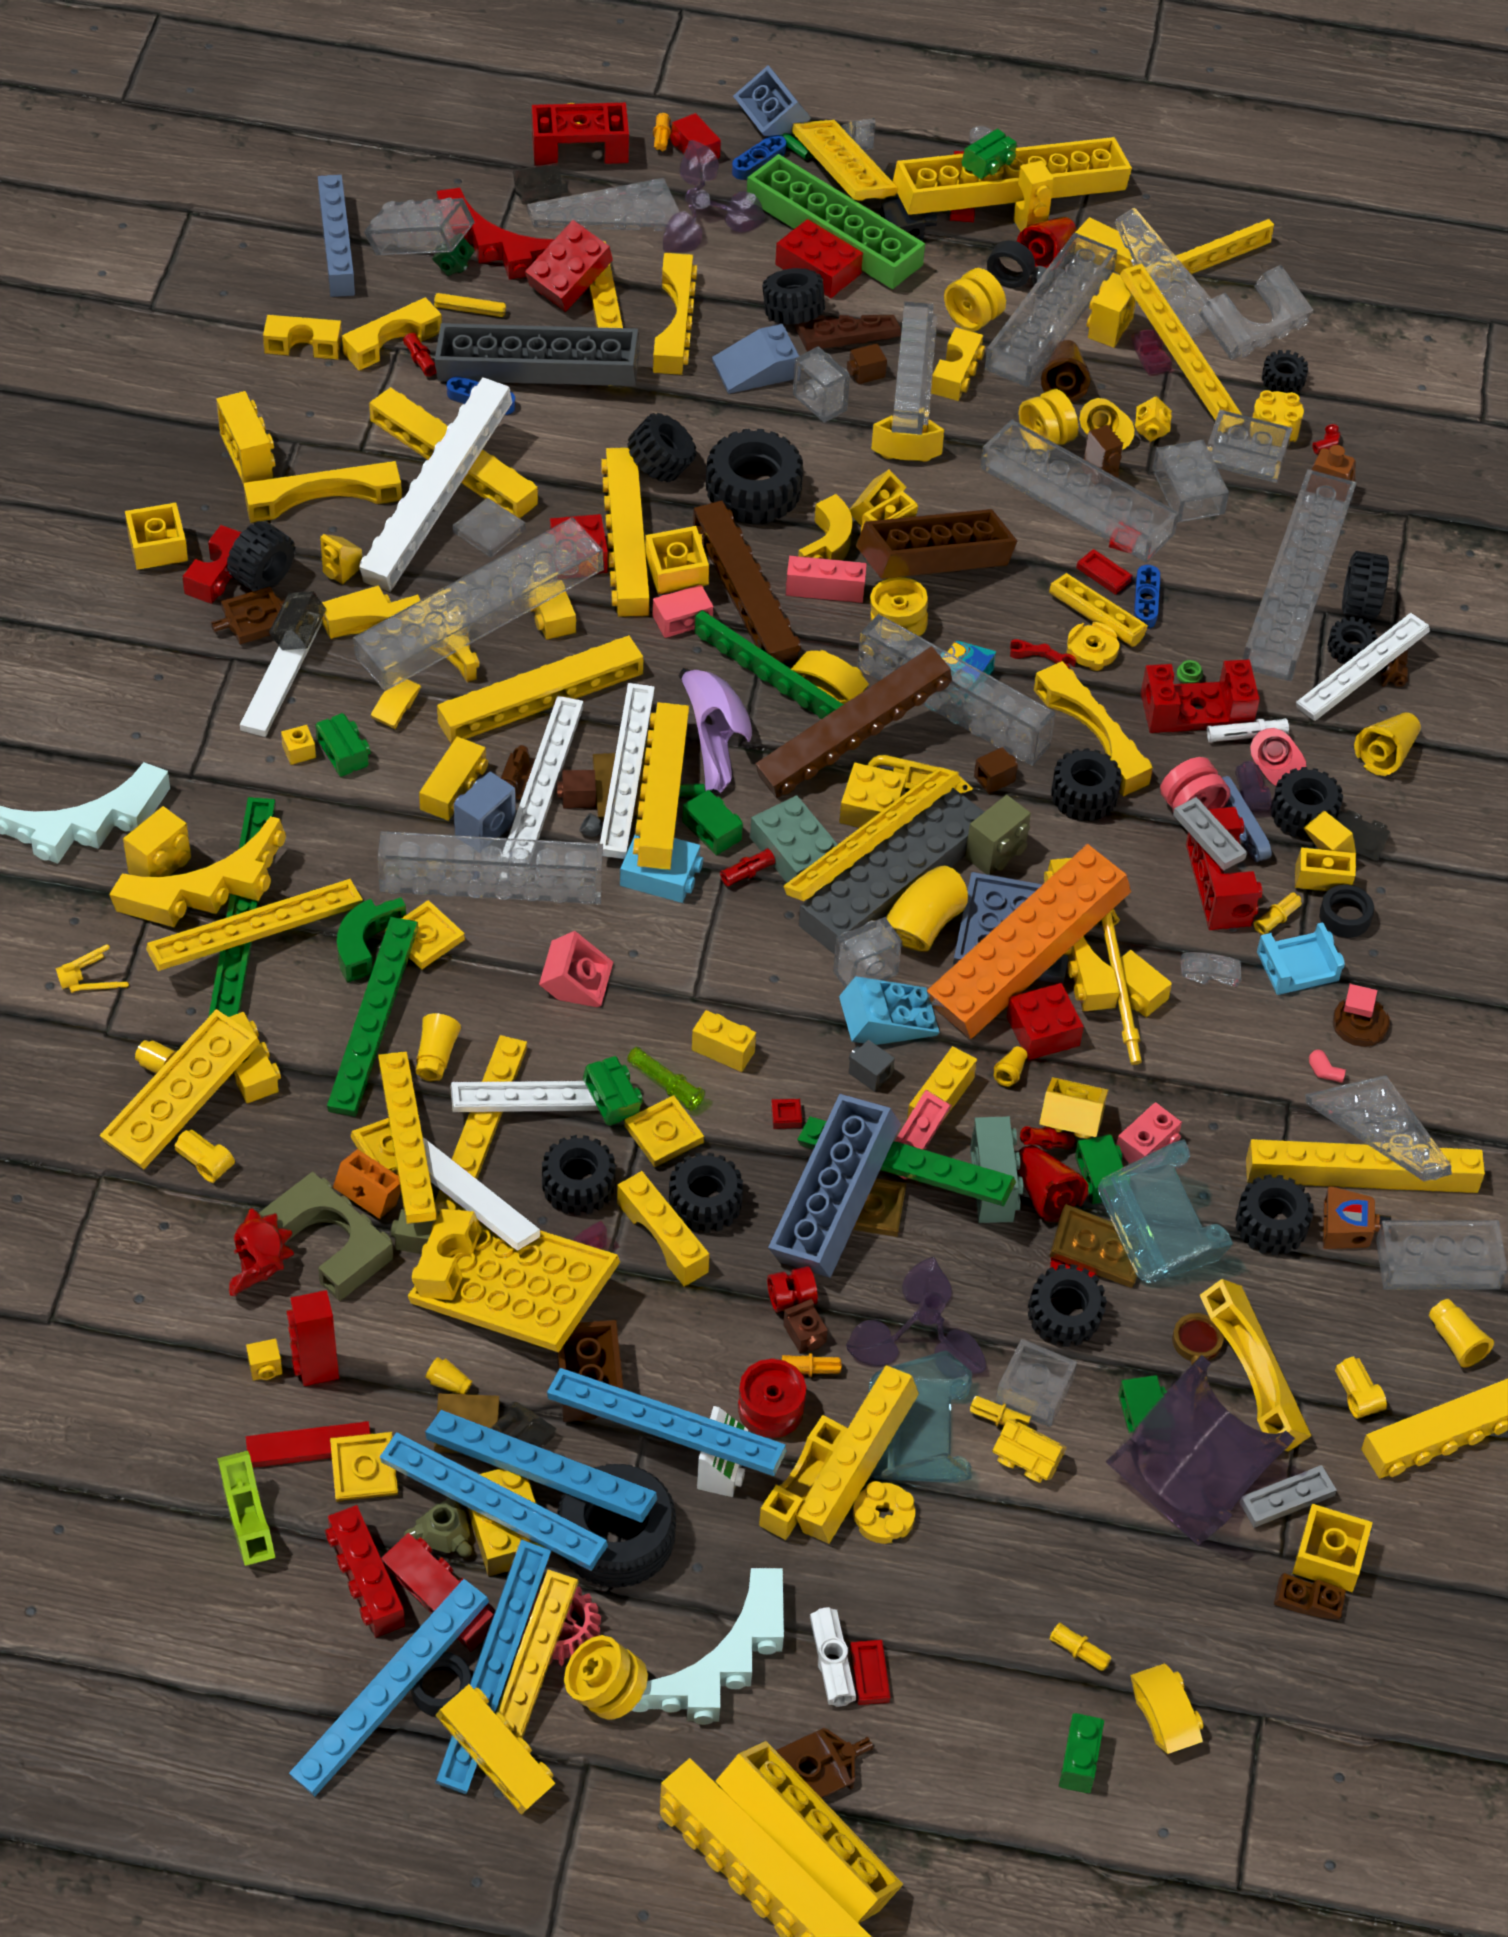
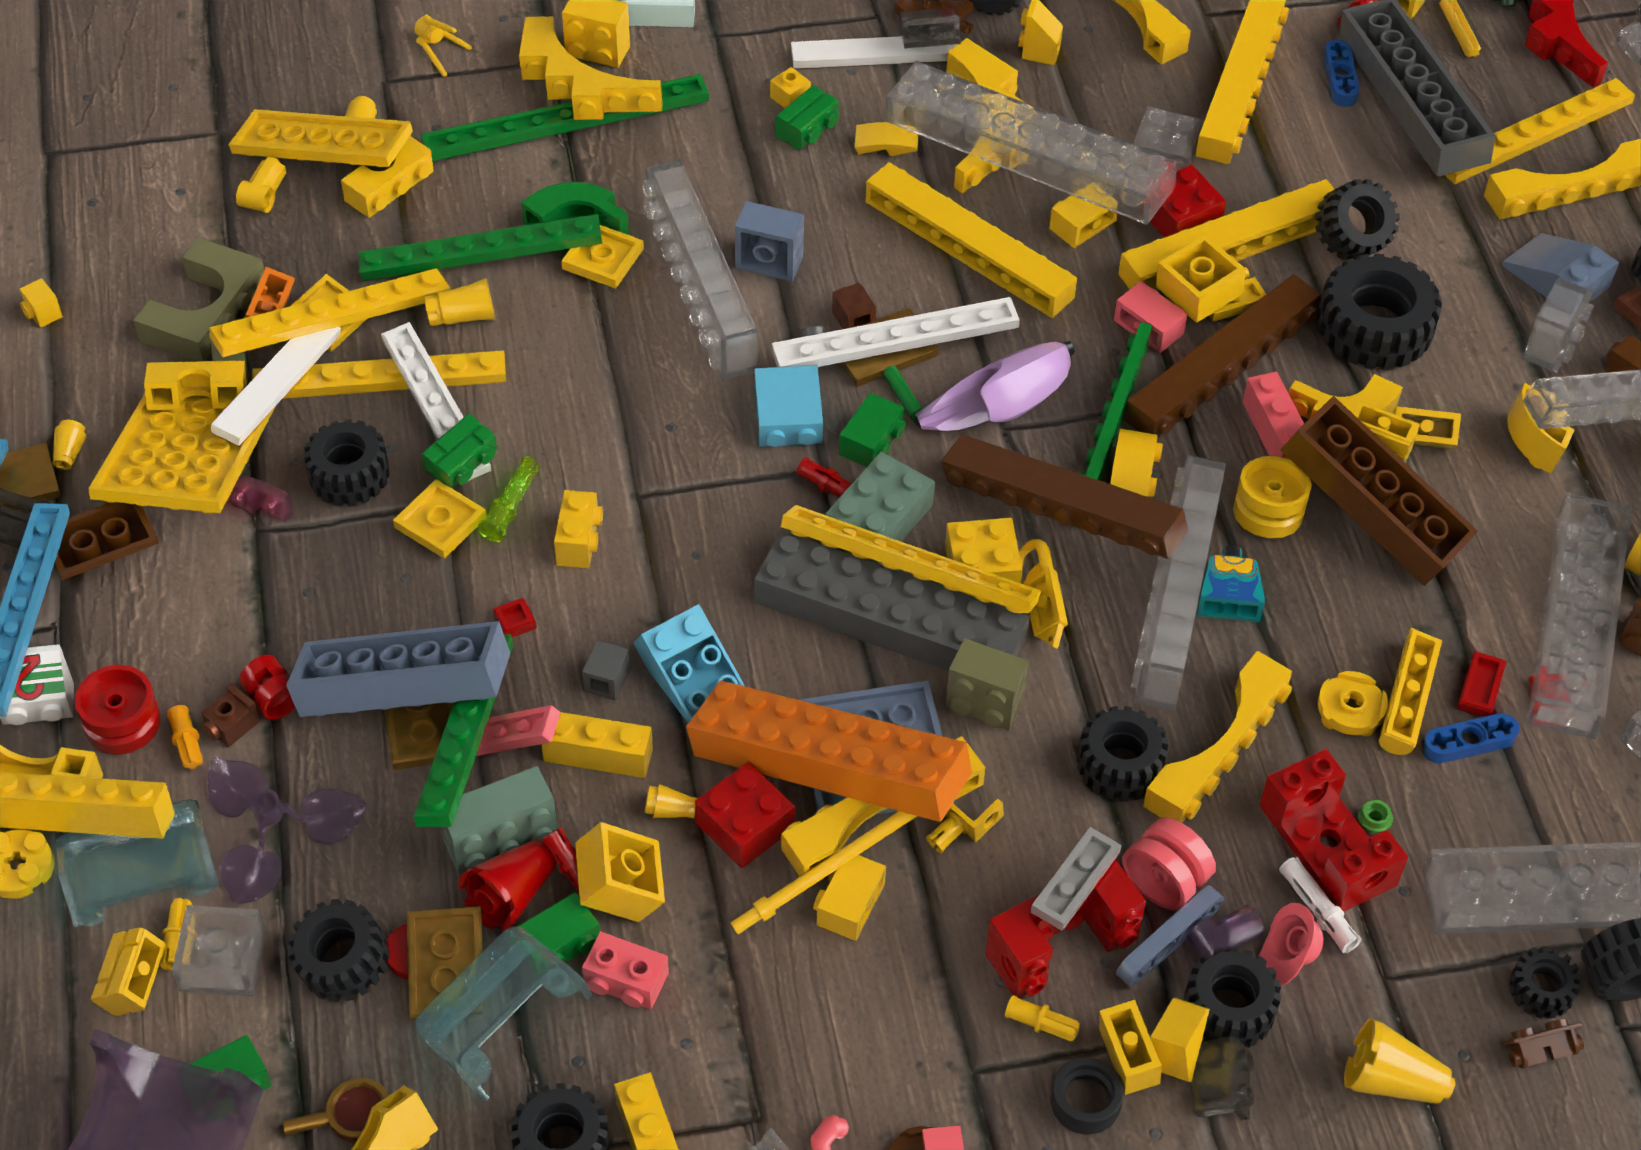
camera: 70 degrees right, 0 degrees up
(253, 924) = (540, 124): yellow plate -> none
(260, 1250) = (152, 250): red head -> none
(312, 1338) = (40, 308): red brick -> none
(435, 484) = (1178, 65): white brick -> none
(452, 777) = (824, 209): yellow brick -> none
(518, 770) = (857, 257): reddish brown hinge -> none
(546, 769) = (874, 277): white plate -> none
(569, 265) = (1560, 68): red brick -> none
(576, 971) = (612, 384): coral slope -> none
(662, 786) = (878, 365): yellow brick -> none
(680, 1247) = (284, 574): yellow arch -> none
(711, 1173) = (361, 553): black tyre -> none
(867, 952) = (746, 613): clear brick -> none
(928, 907) = (835, 644): yellow brick -> none
(996, 770) = (1096, 661): reddish brown brick -> none
(1023, 649) = (1306, 644): red piece -> none
(1204, 966) = (915, 966): clear slope -> none
(1301, 960) = (979, 1063): medium azure panel -> none
(1362, 666) = (1502, 1001): white tile -> none

